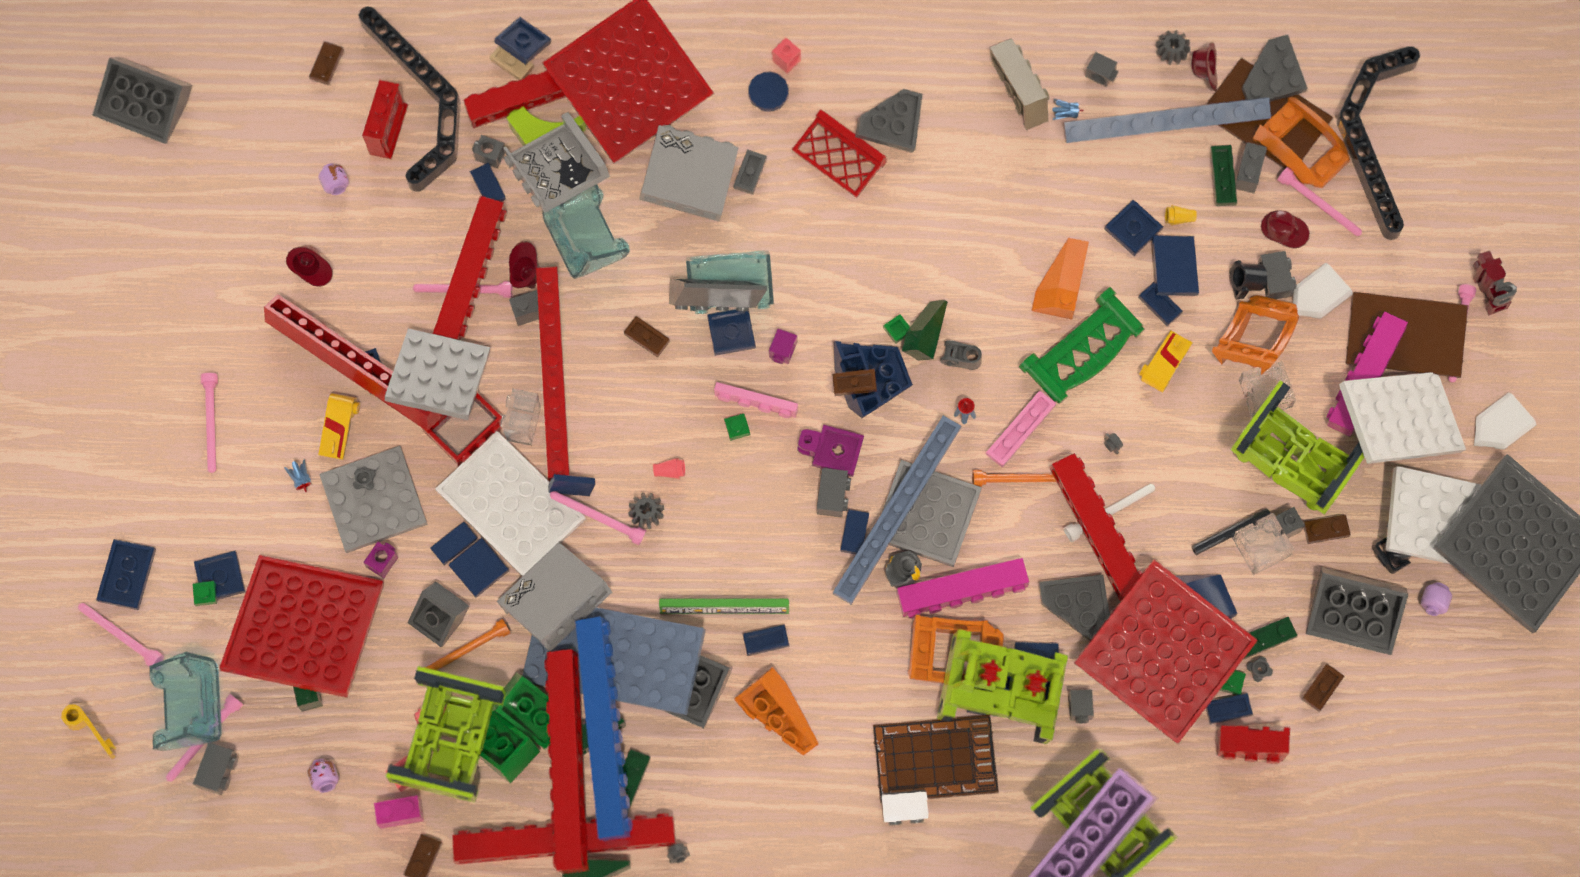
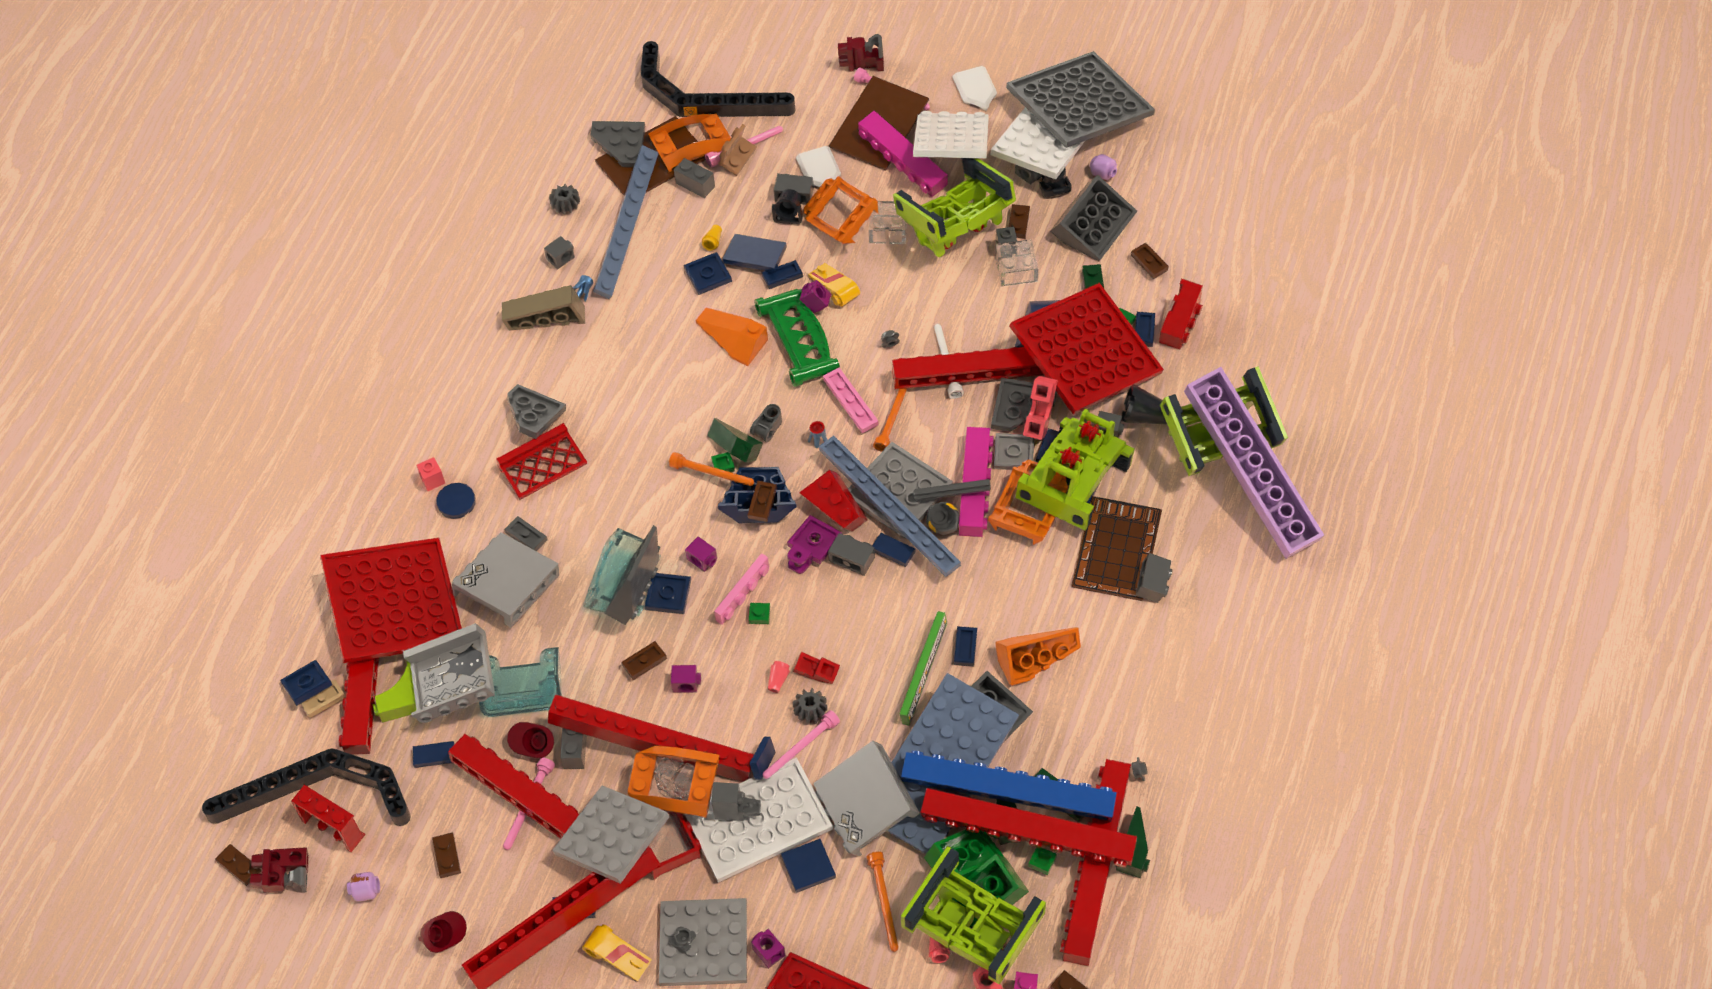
camera: 70 degrees left, 15 degrees down
(325, 95) = (274, 868): none -> dark red hips
(390, 238) = (446, 855): none -> reddish brown plate
(438, 613) = (841, 911): dark grey slope -> none
(453, 543) = (776, 881): dark blue tile -> none
(493, 158) = (402, 733): dark grey brick -> none
(508, 473) = (731, 803): none -> dark grey hinge
(517, 435) = (701, 784): none -> orange wedge
(544, 786) = (1042, 860): none -> green plate
(638, 382) = (685, 678): none -> magenta brick
(692, 503) = (816, 669): none -> red slope
(885, 284) = (678, 461): none -> orange piece
(885, 455) = (835, 500): none -> red wedge
(935, 567) = (952, 489): none -> dark grey axle
(1018, 616) = (1012, 450): none -> light grey tile
(1077, 624) = (1039, 416): none -> coral arch
(1116, 738) = (1142, 407): none -> black cone
(1136, 354) = (815, 296): none -> magenta brick
(1204, 64) = (591, 182): dark red piece -> none
(1223, 175) = (691, 199): dark green plate -> none
(1227, 533) = (996, 283): black piece -> none
(1260, 663) = (1119, 293): dark grey plate -> none
(1285, 229) = (754, 174): dark red piece -> none
(1300, 199) = (736, 151): none -> medium nougat bracket

